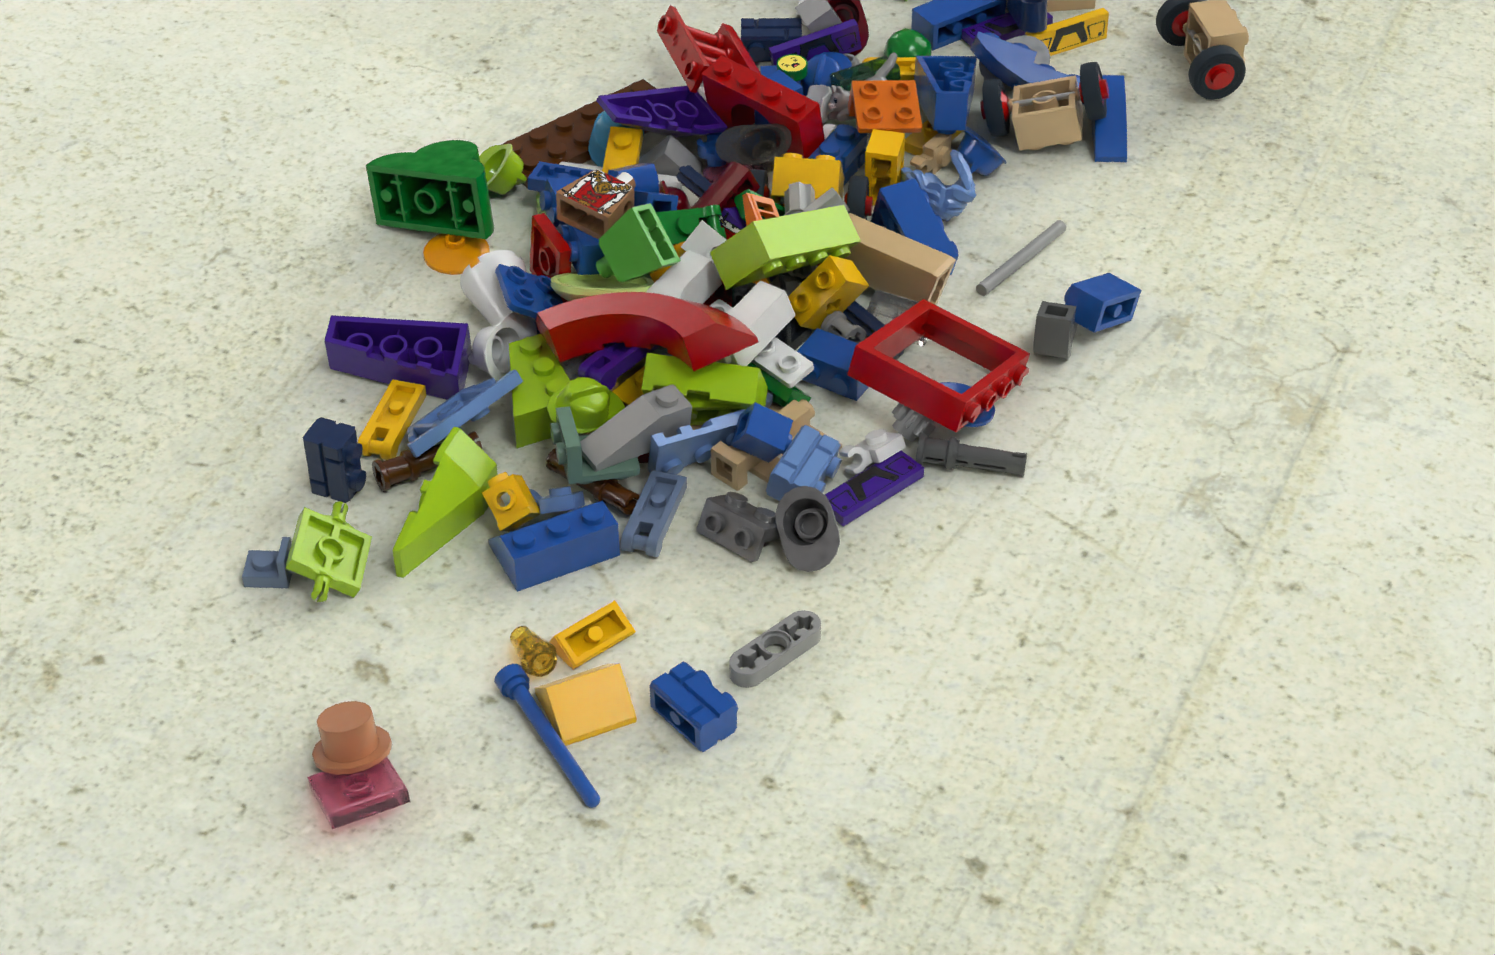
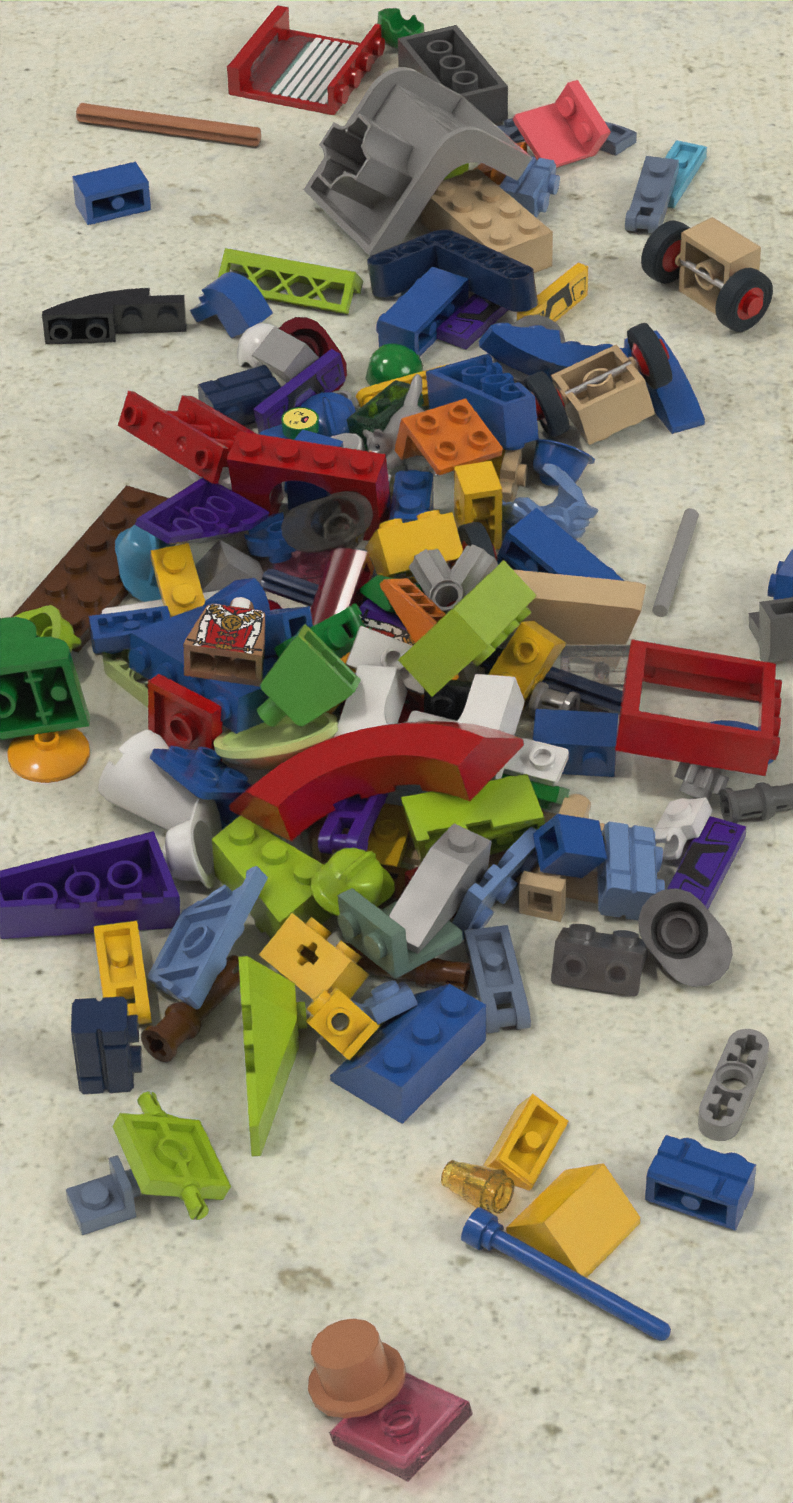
camera: 25 degrees left, 0 degrees up
(523, 450) = (311, 961): none -> yellow brick

